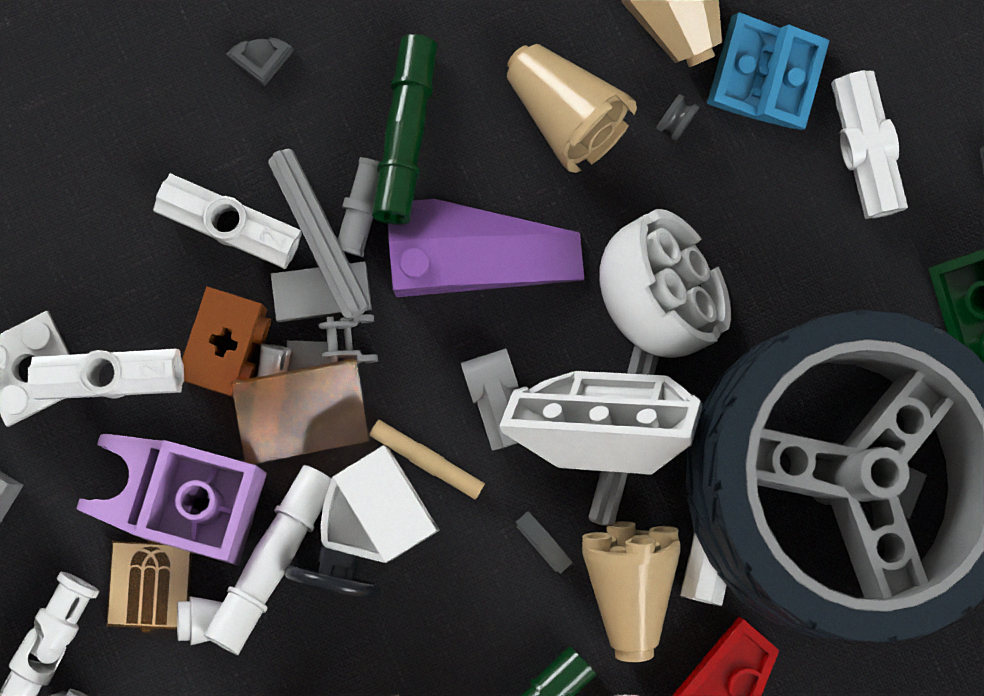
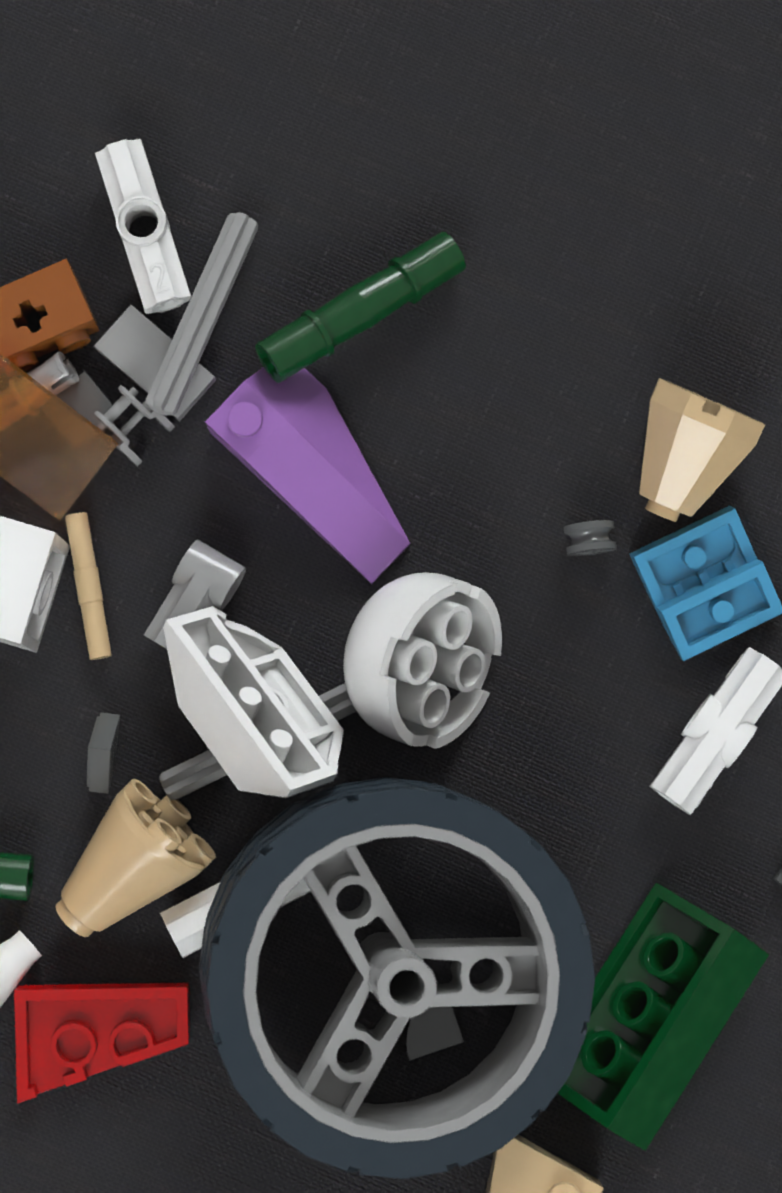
camera: 50 degrees right, 0 degrees up
(260, 57) = (317, 125): dark grey tile -> none
(359, 209) = (241, 338): light grey pin -> none
(569, 105) = (511, 432): tan cone -> none

